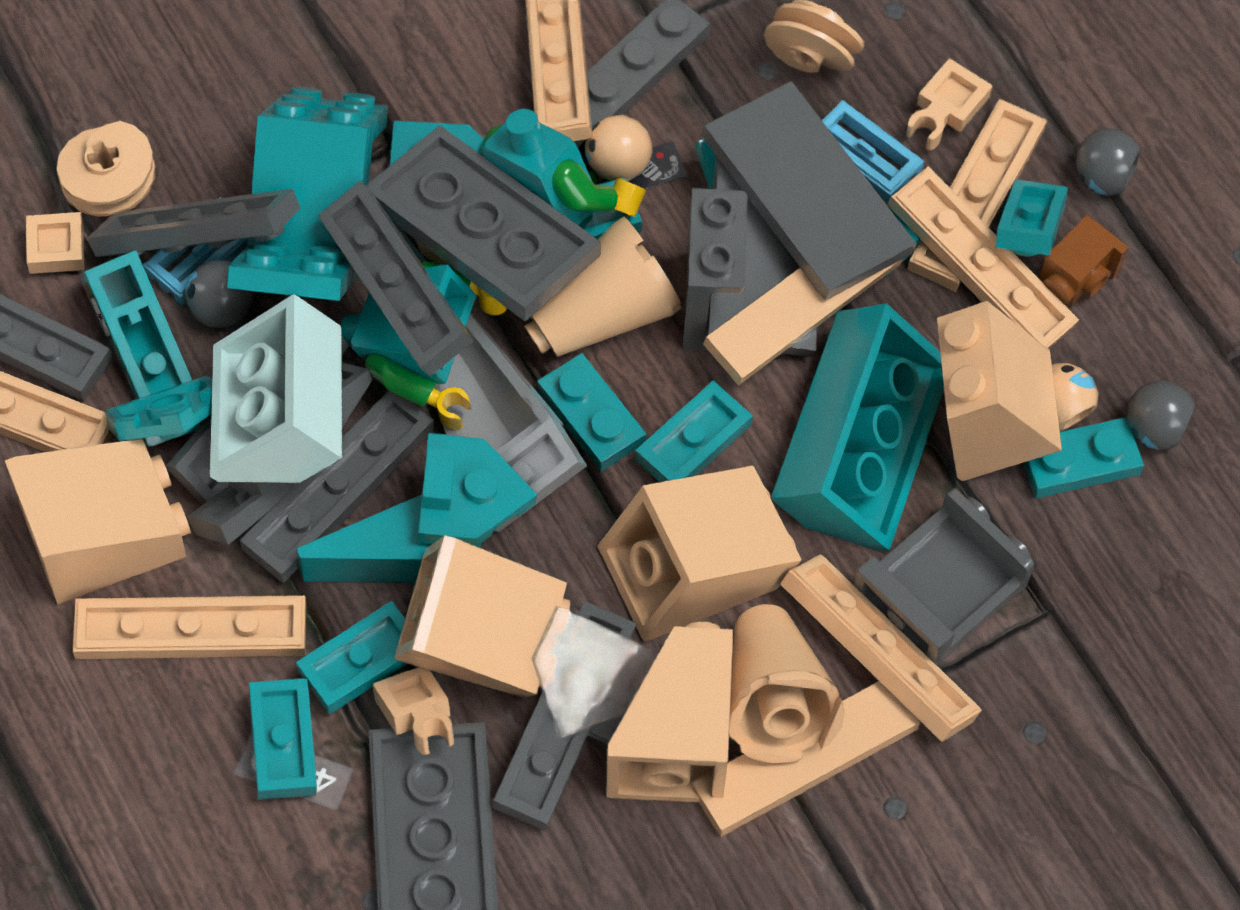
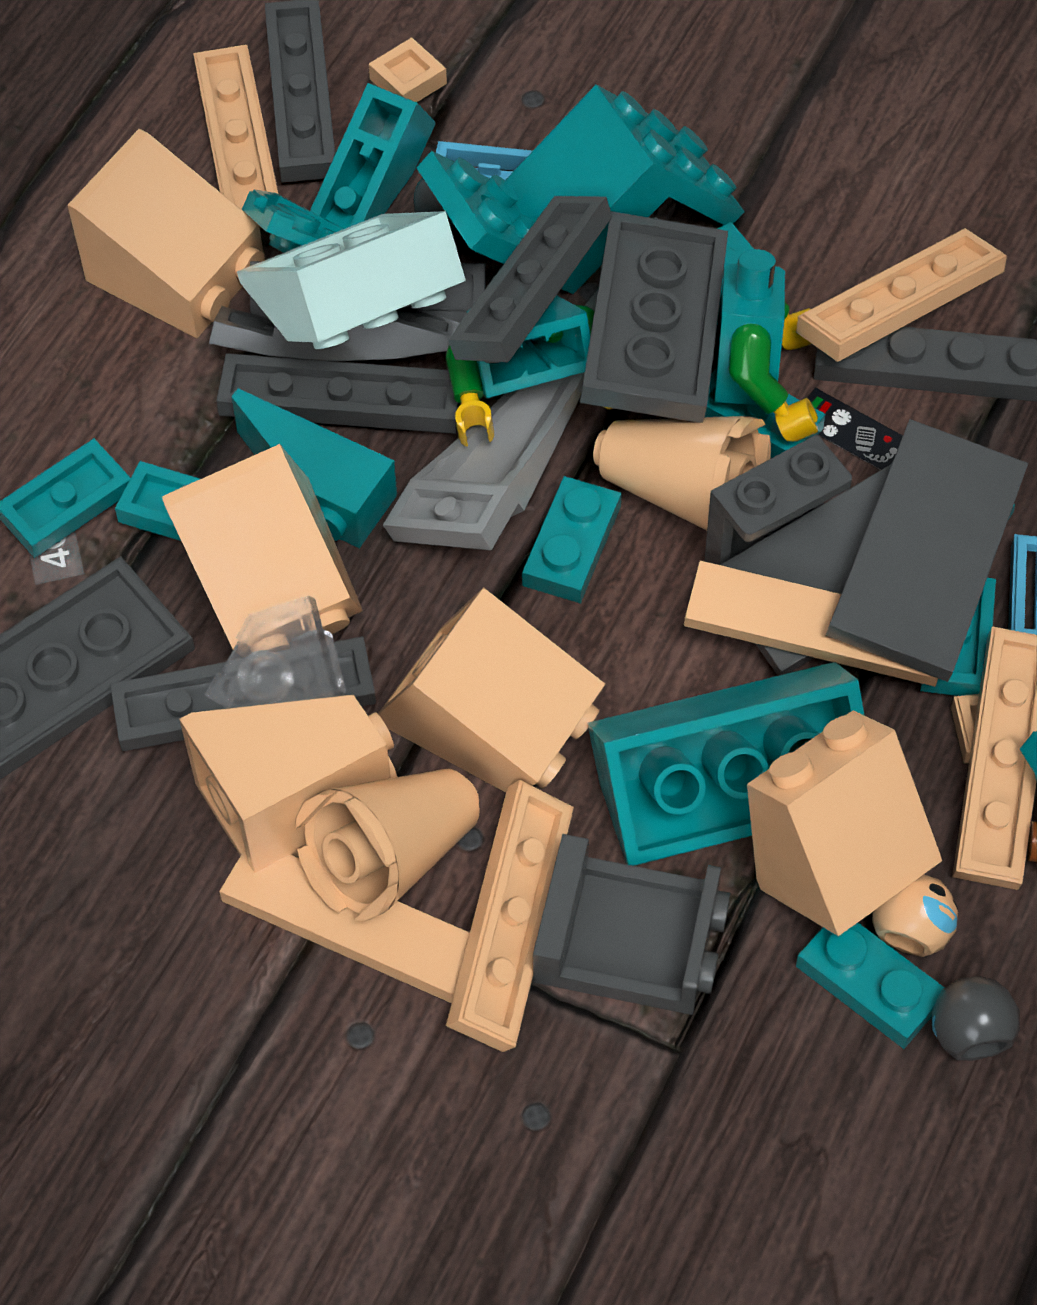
camera: 60 degrees right, 5 degrees down
(106, 169) = (503, 63): light nougat piece -> none
(189, 627) = (129, 378): light nougat tile -> none
(196, 222) = (487, 133): dark grey plate -> none
(416, 704) = (157, 571): light nougat plate -> none
(468, 490) = (383, 468): teal plate -> none
(618, 148) = (854, 394): light nougat piece -> none
(694, 435) = (610, 629): teal plate -> none

